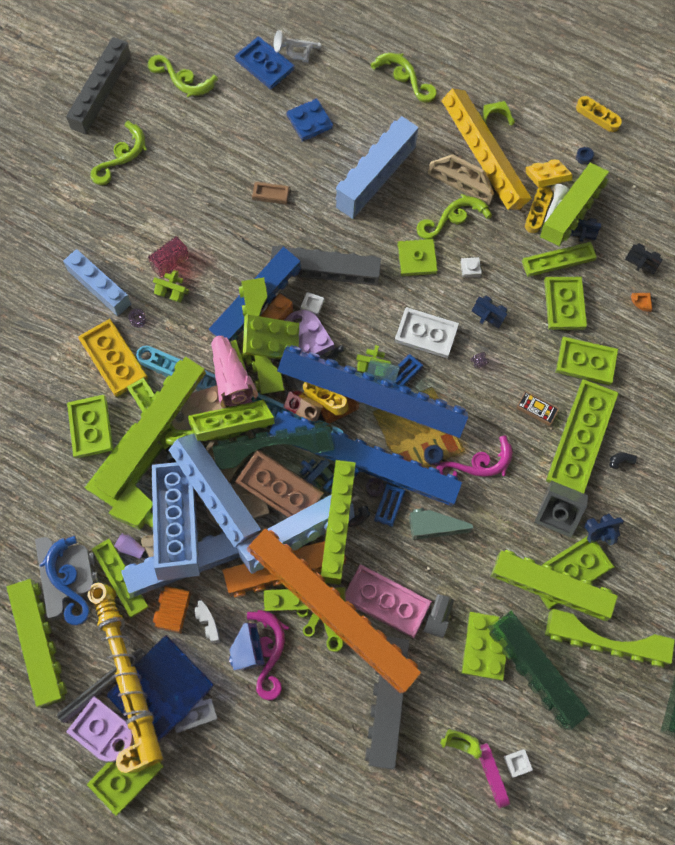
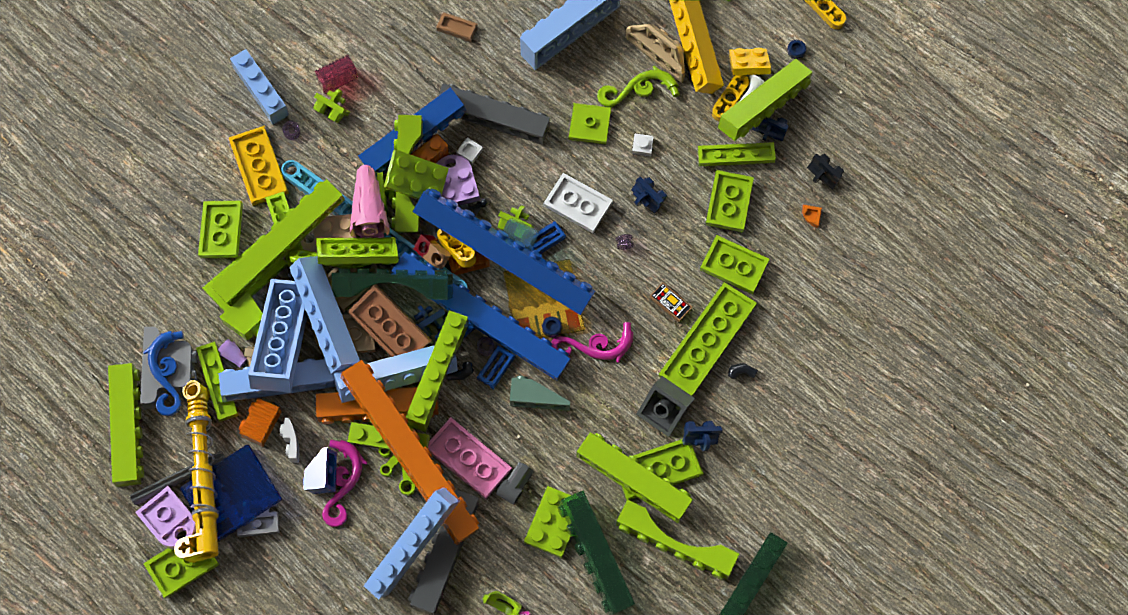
camera: 15 degrees right, 0 degrees up
(358, 703) = (411, 543): none -> light blue brick

